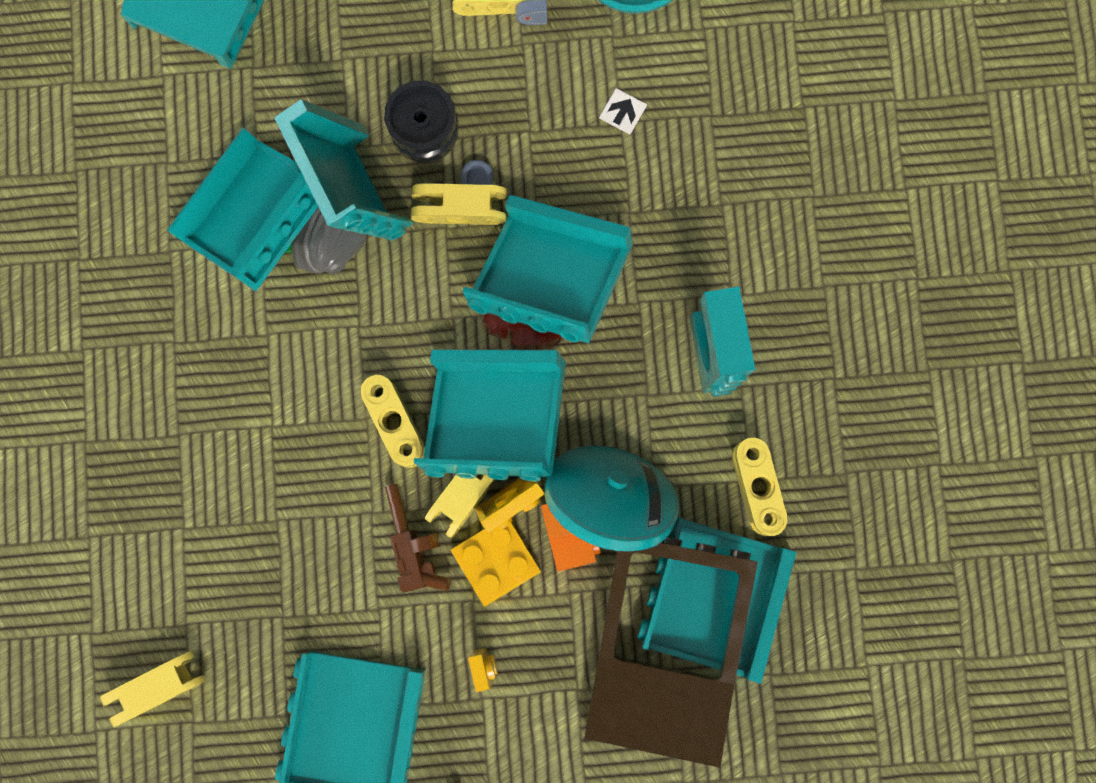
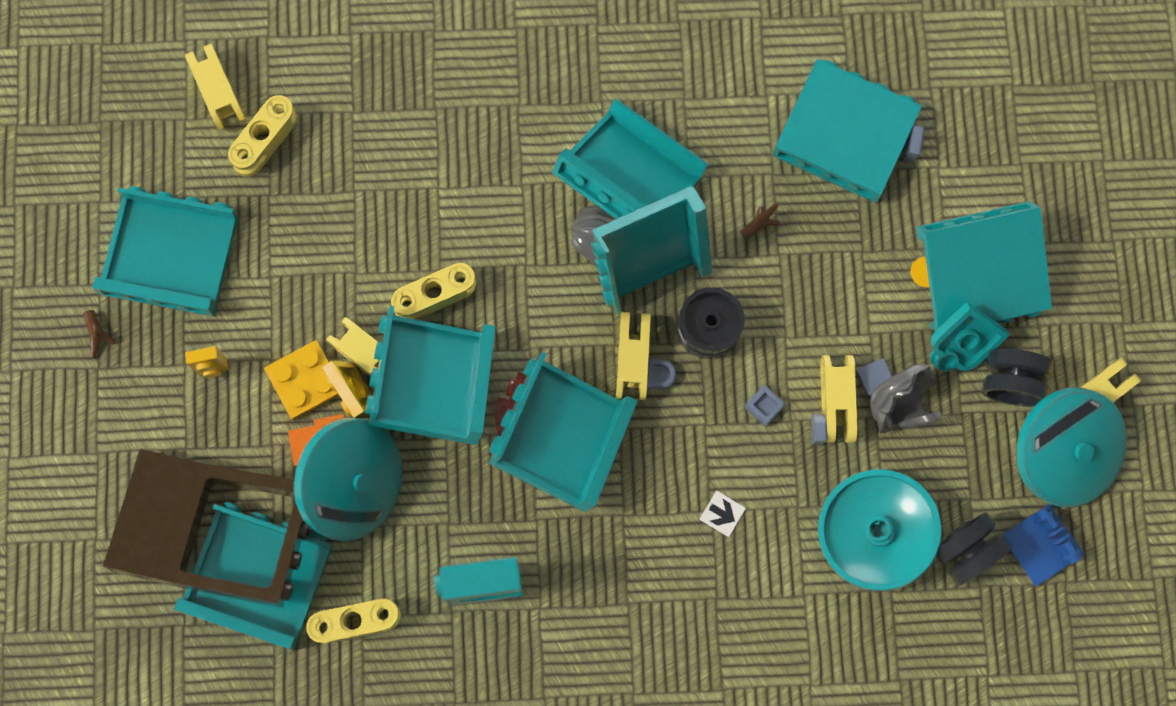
camera: 80 degrees right, 5 degrees down
(195, 623) = (274, 117): none -> light yellow piece
(306, 77) = (761, 220): none -> reddish brown bar
(408, 550) = (319, 304): reddish brown piece -> none
(507, 69) = (764, 405): none -> sand blue tile

